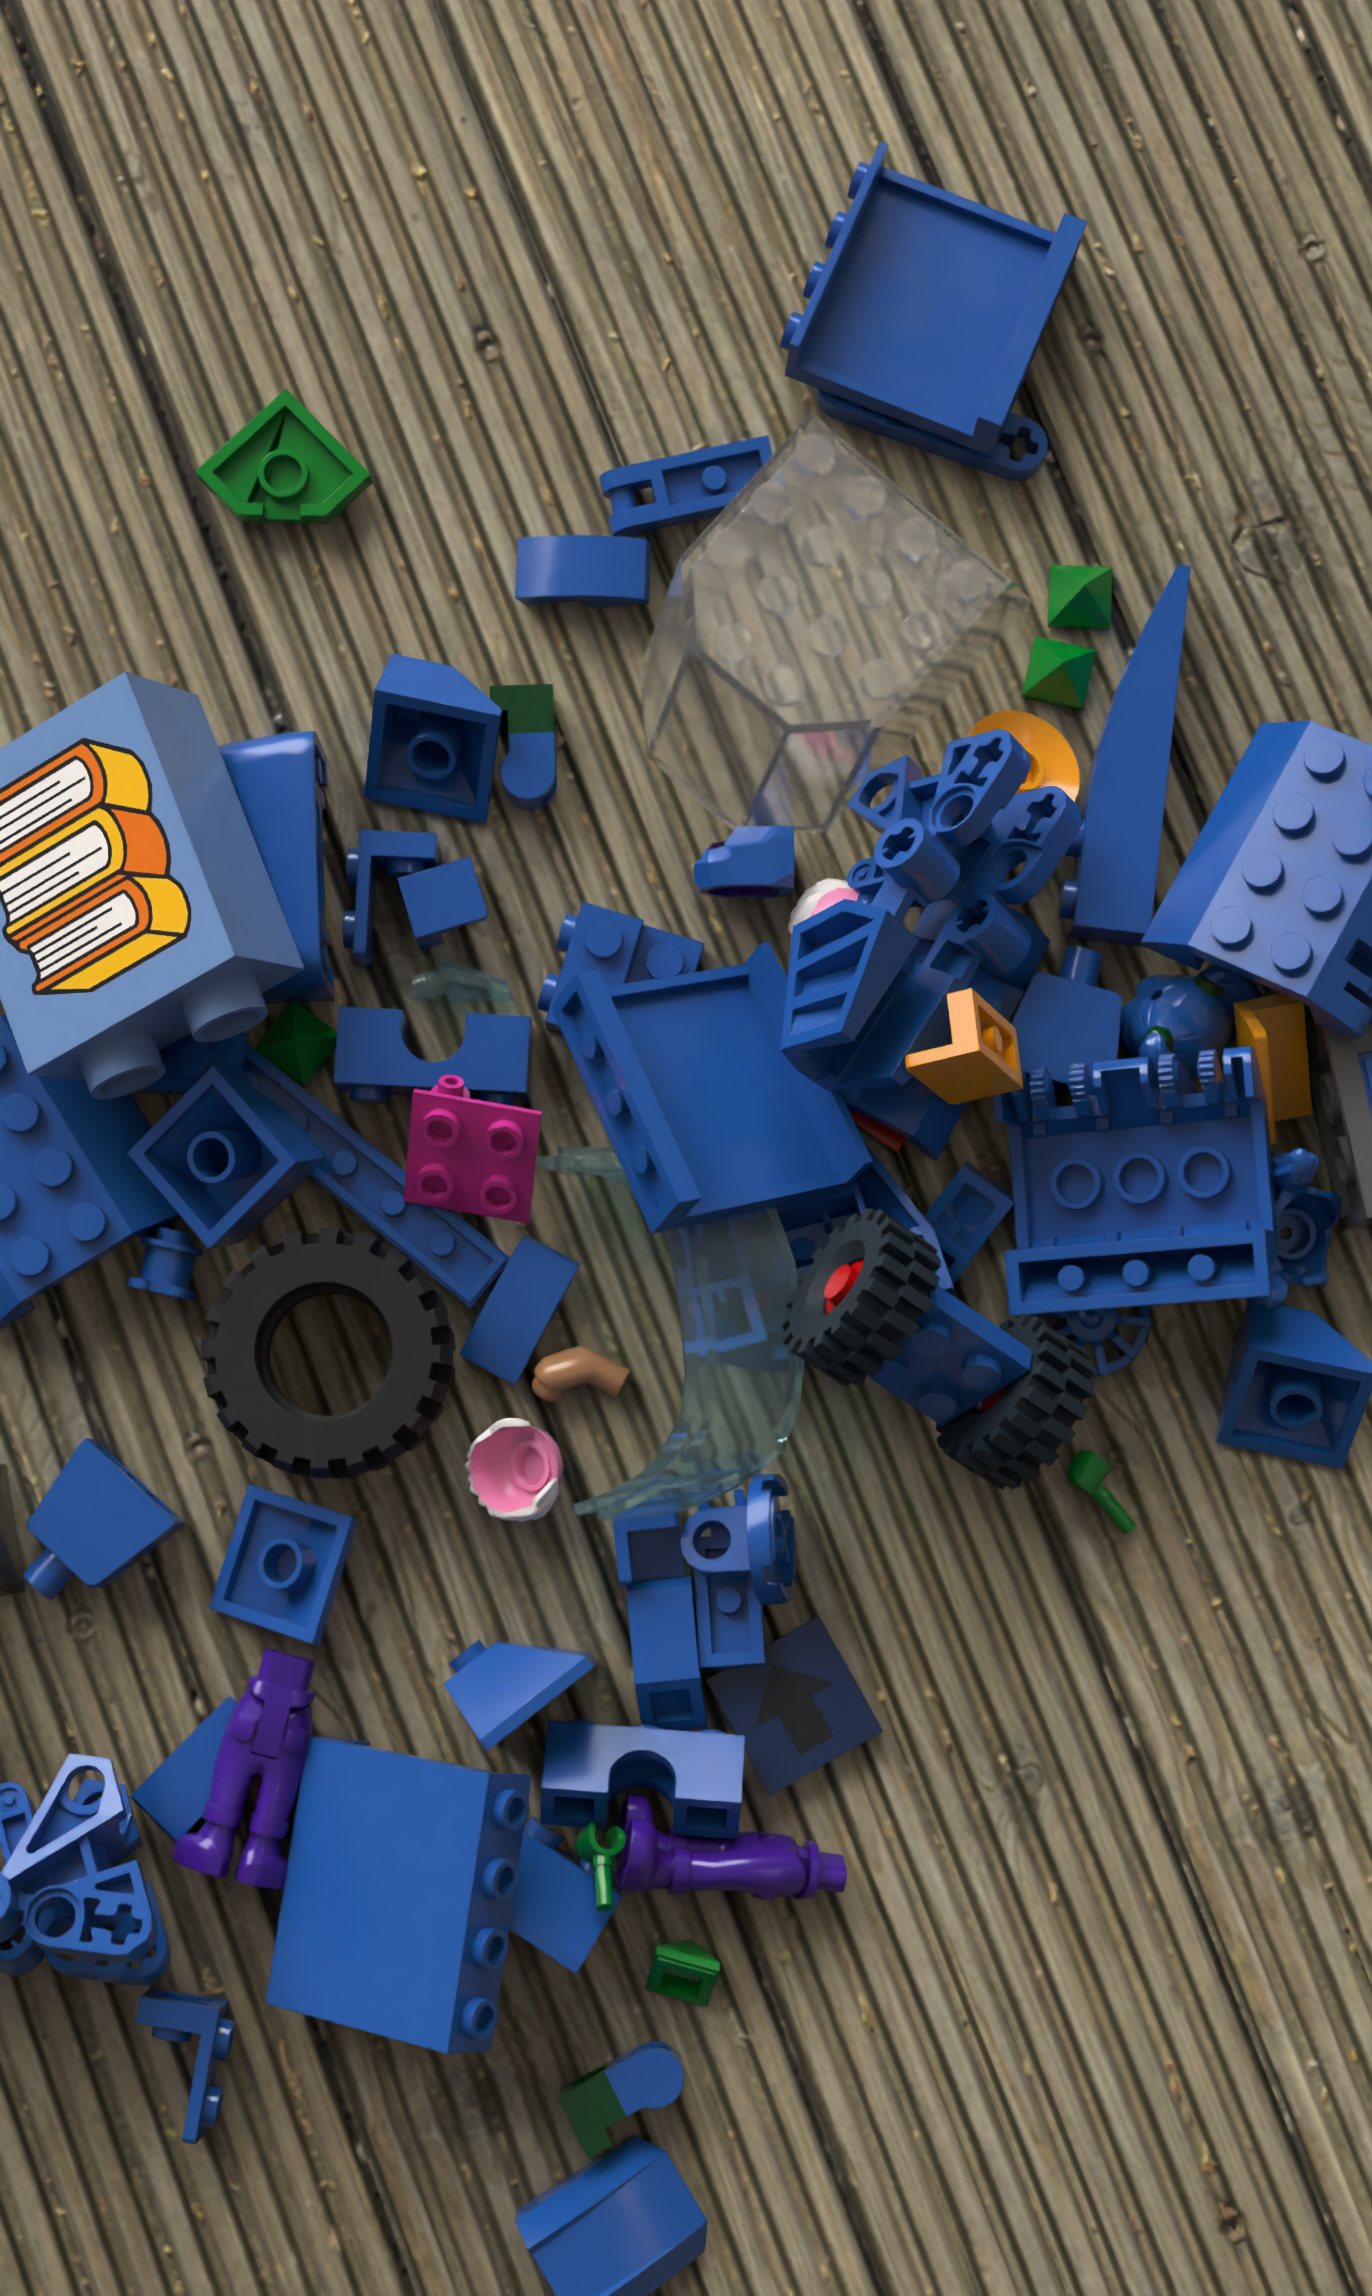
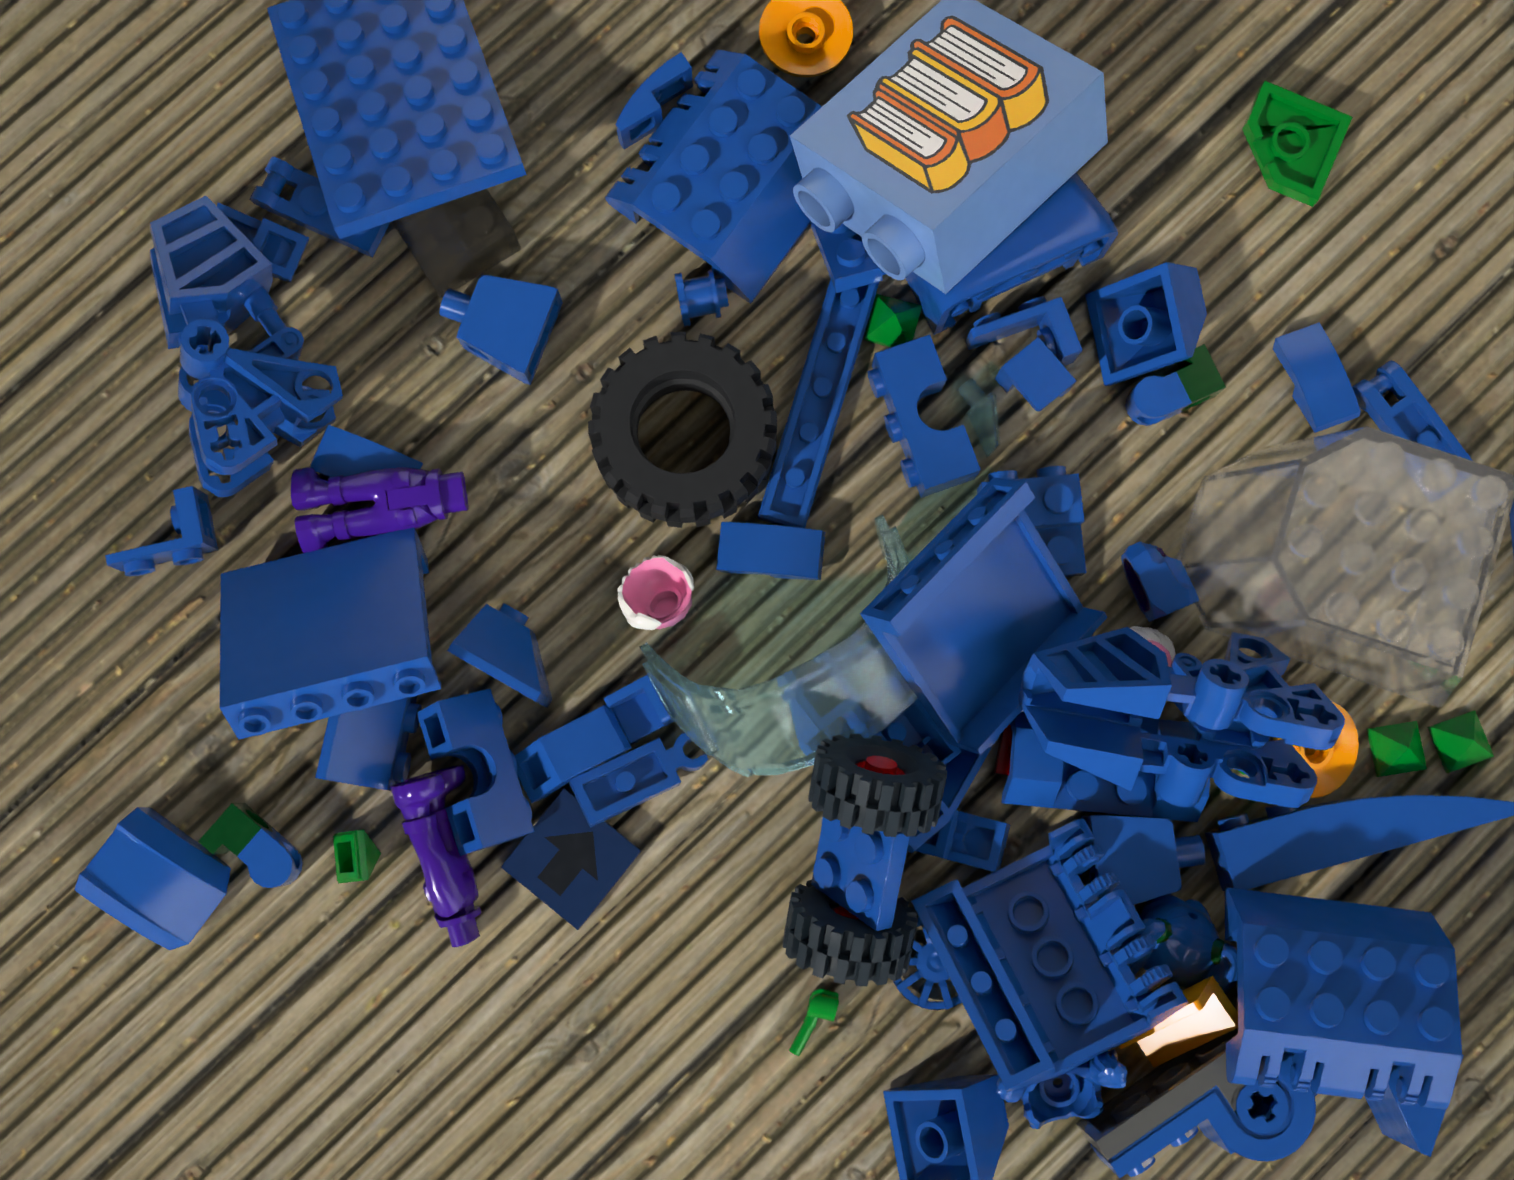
camera: 65 degrees right, 0 degrees up
(225, 1157) = (791, 301): blue slope -> none
(284, 1564) = (527, 461): blue slope -> none
(471, 1153) = (865, 468): dark pink hinge -> none
(574, 1367) = (746, 606): medium nougat arm -> none
(601, 1860) = (404, 765): green hand -> none
(759, 1544) = (676, 786): blue tile -> none
(979, 1061) = (1087, 800): light orange panel -> none

